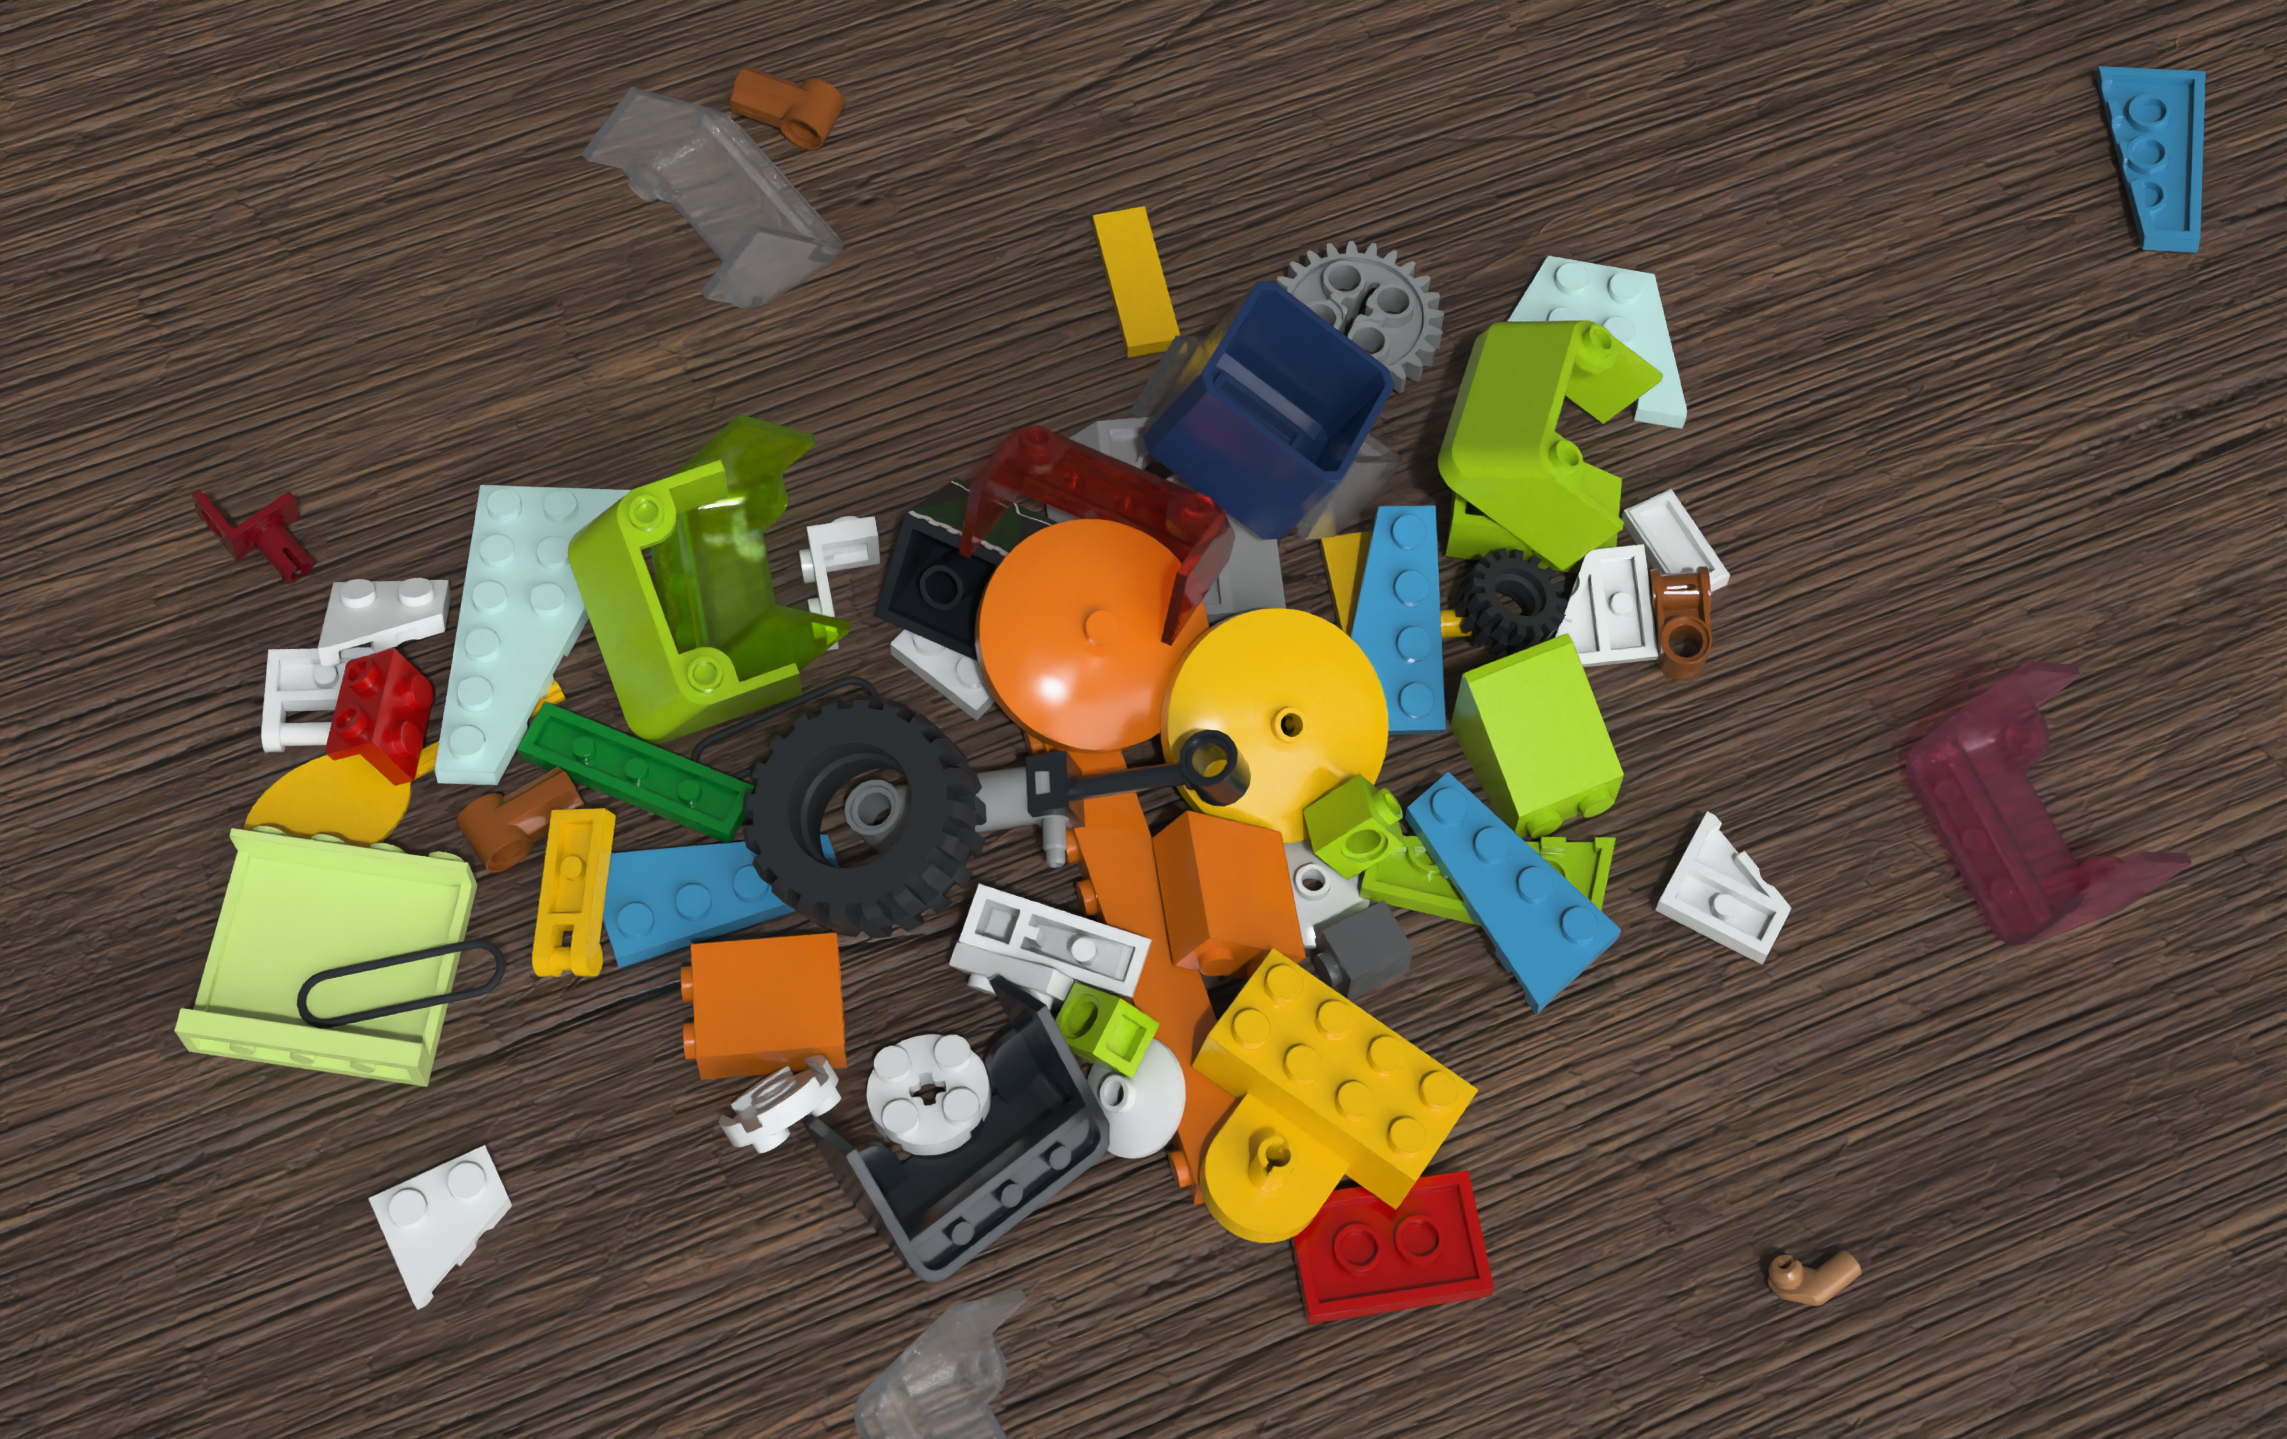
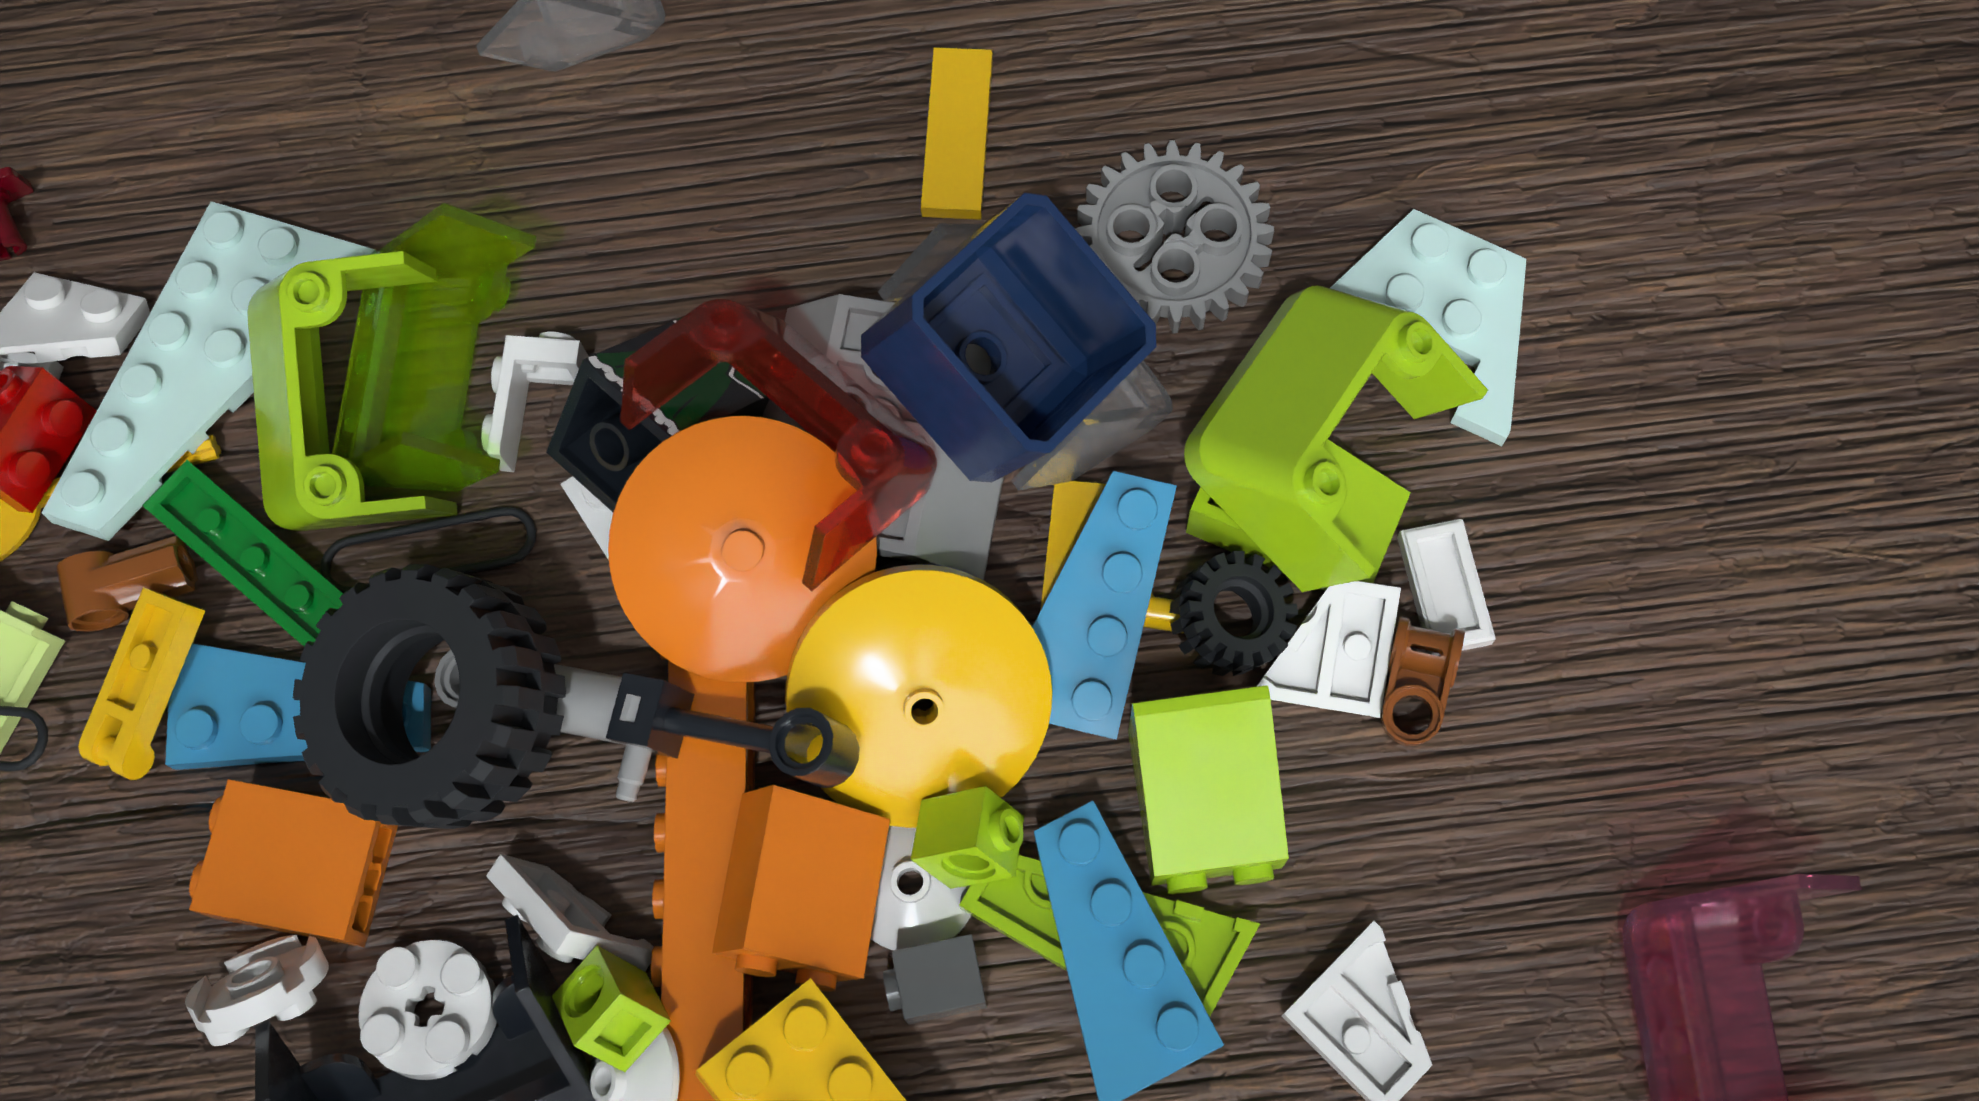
camera: 25 degrees right, 10 degrees up
(1056, 939) = (596, 883): white slope -> none

